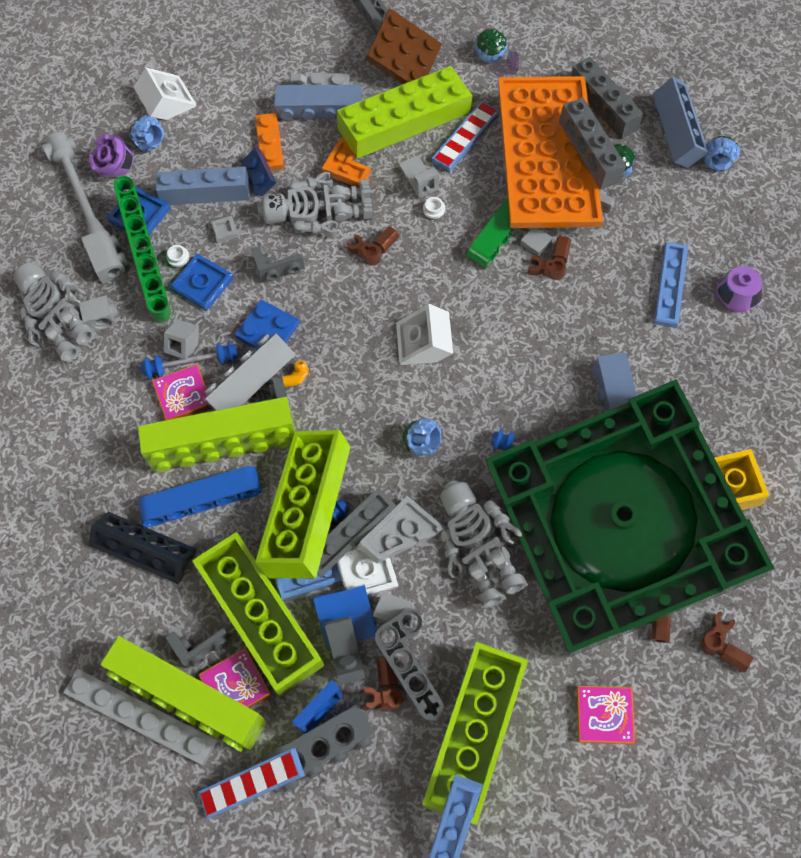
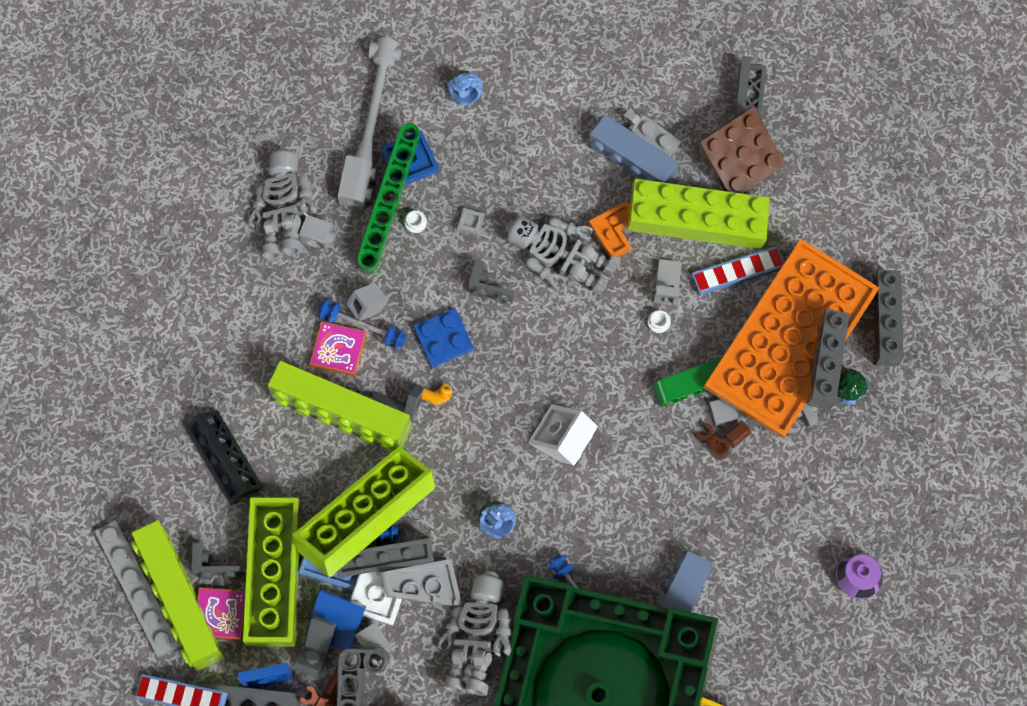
camera: 30 degrees right, 5 degrees up
(111, 156) = (420, 92): medium lavender cone -> none
(163, 94) = (506, 56): white slope -> none
(199, 496) = (293, 446): blue beam -> none
(201, 282) = (419, 258): blue tile -> none
(203, 185) = (479, 171): sand blue brick -> none
(250, 375) = (397, 372): light grey brick -> none
(258, 172) = (534, 187): dark blue plate -> none
(269, 140) = (565, 162): orange plate -> none
(372, 252) = (576, 328): copper bar -> none
(490, 45) = (825, 197): dark green piece -> none
(512, 62) = (833, 226): clear purple tile -> none
(671, 285) = (807, 529): medium blue tile -> none
(680, 123) = (933, 387): sand blue brick -> none
(722, 153) = (946, 441): medium blue piece -> none

